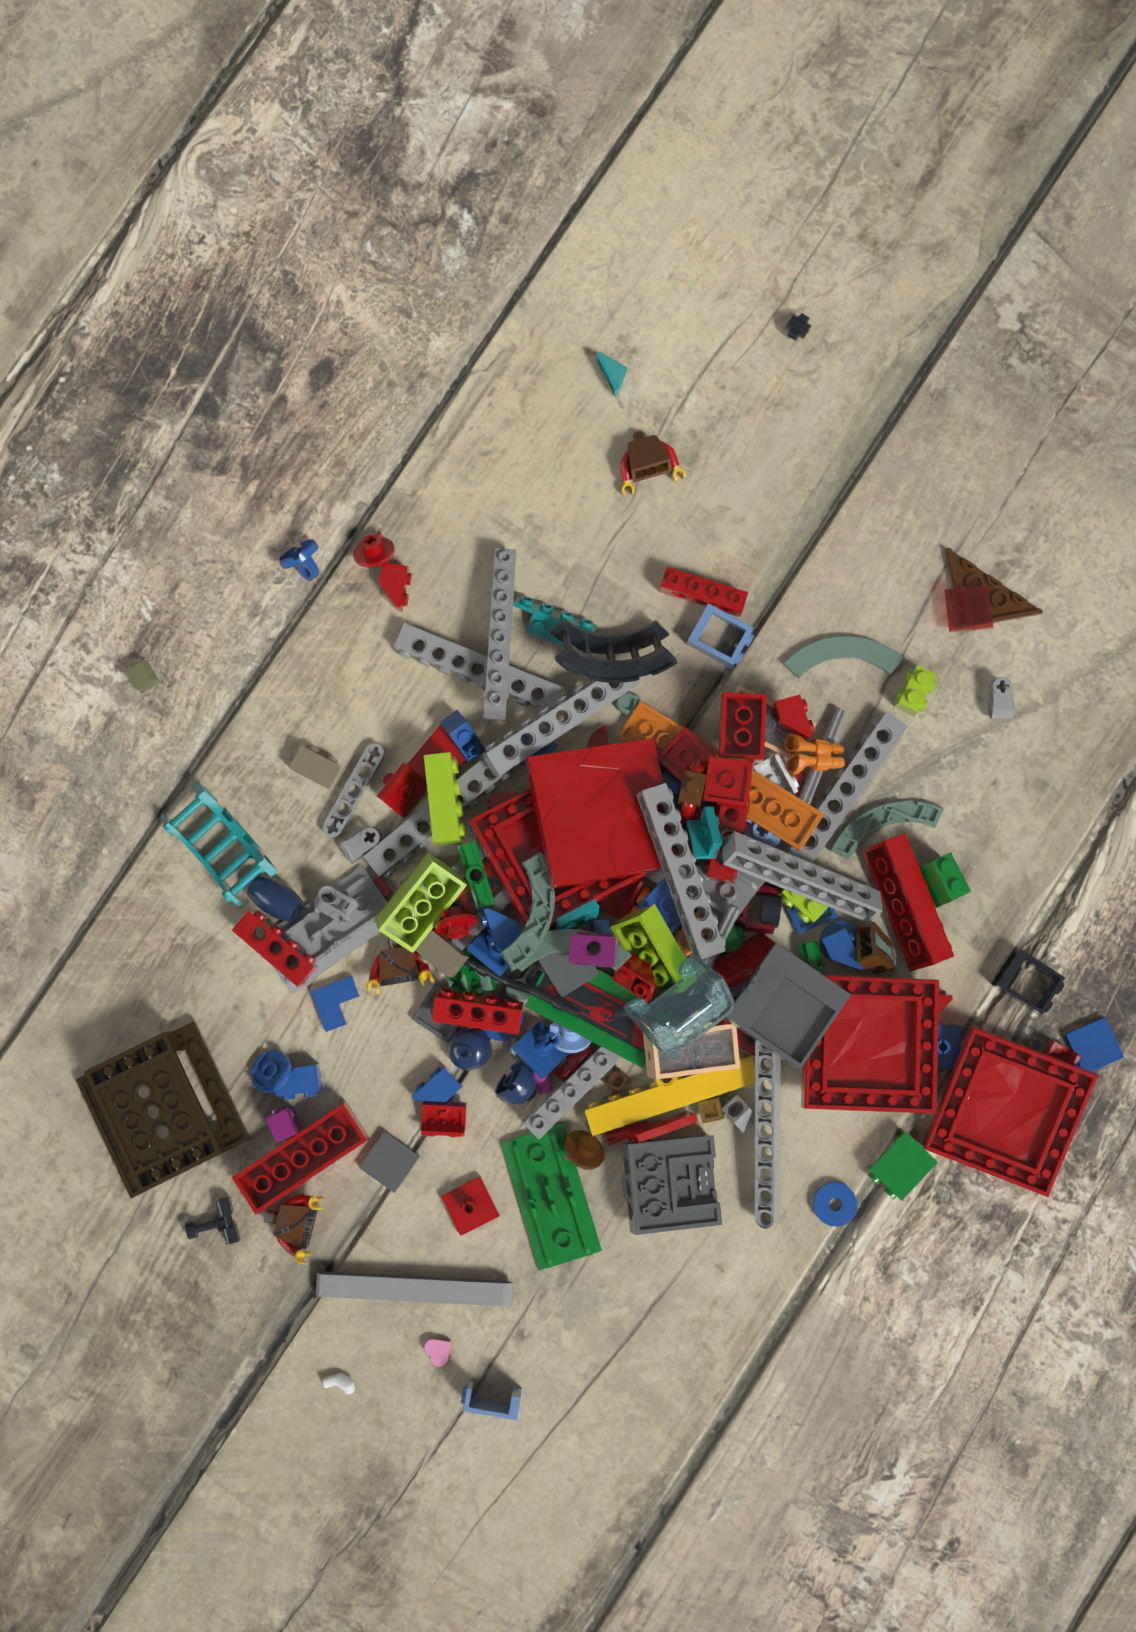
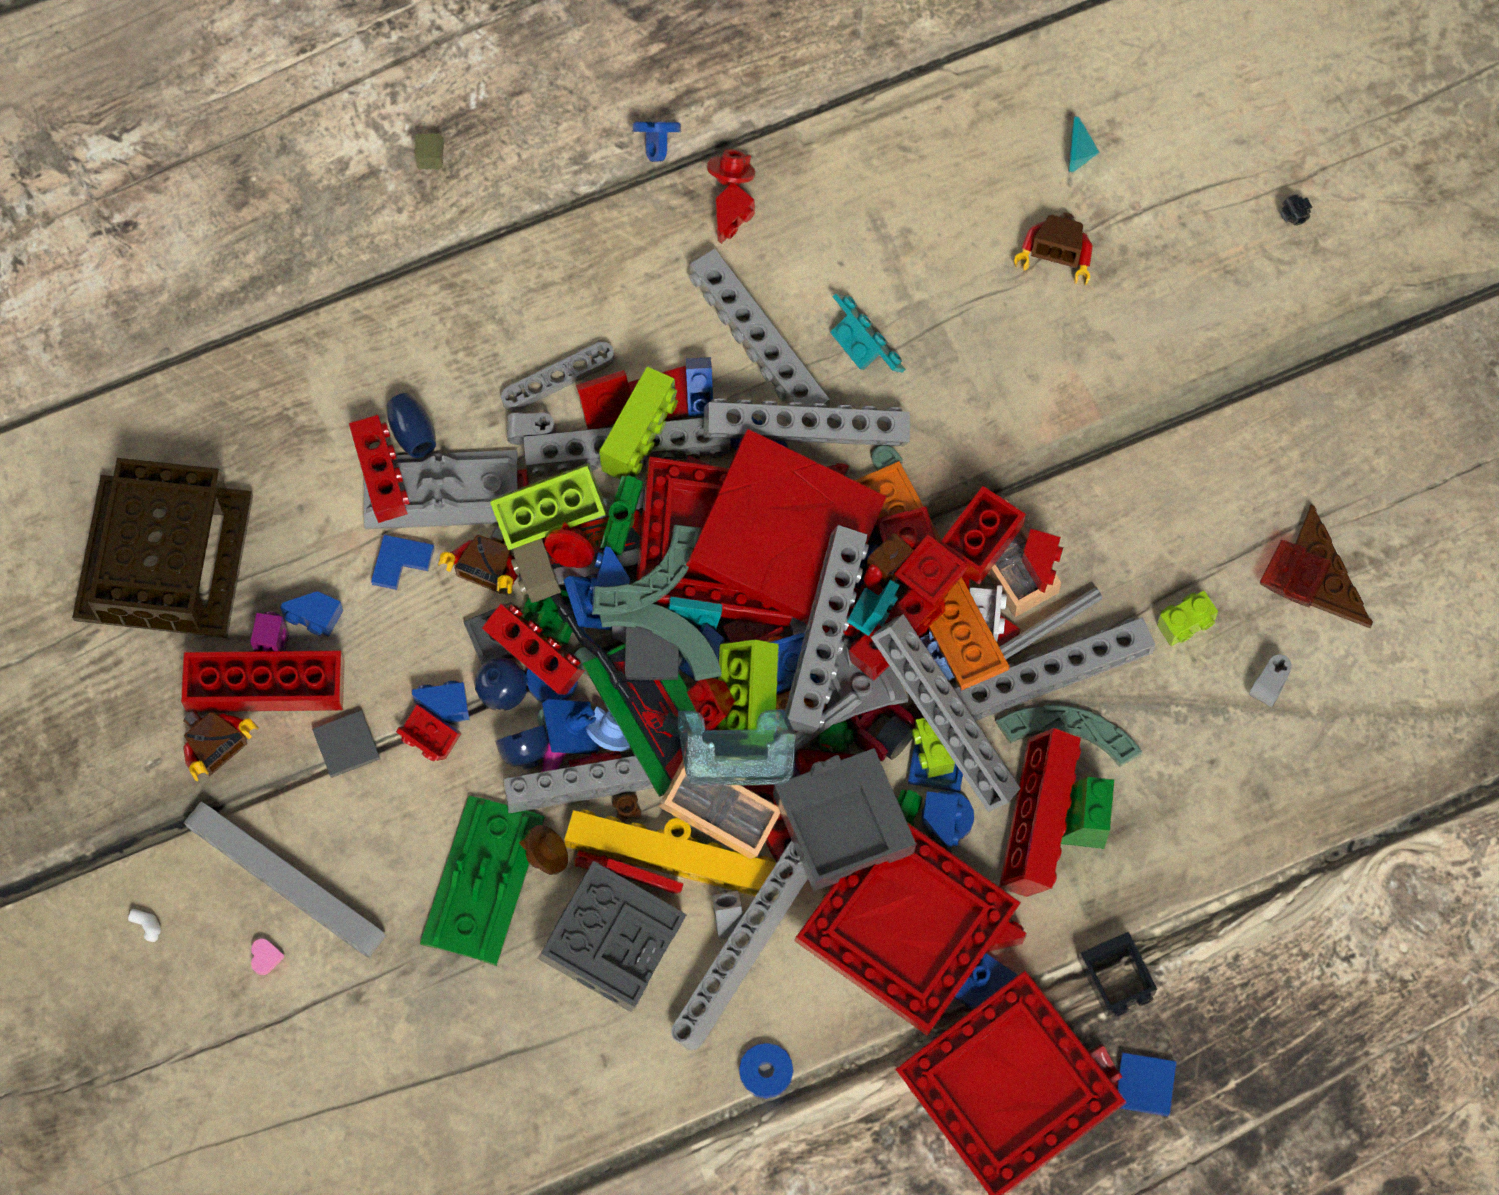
camera: 30 degrees right, 15 degrees down
(223, 1222) = (143, 696): black bar -> none
(236, 833) = (417, 345): teal fence -> none
(271, 1071) = (292, 583): blue tile -> none
(314, 766) = (536, 331): dark tan brick -> none
(337, 904) = (465, 461): light grey piece -> none
(470, 1205) = (395, 837): red tile -> none
(491, 1408) = (305, 1047): medium blue panel -> none
(500, 634) = (800, 312): light grey brick -> none
(603, 958) = (691, 654): magenta brick -> none
(612, 670) = (896, 397): black fence -> none
(694, 642) = (1012, 427): medium blue window -> none
(703, 591) = (1032, 397): red brick -> none
(710, 1109) = (701, 891): pearl gold tile -> none
(818, 749) = (1045, 615): orange piece -> none
(843, 648) = (1140, 536): sand green tile -> none
(874, 949) = (975, 838): reddish brown torso -> none
(902, 1166) = (860, 1072): green panel -> none

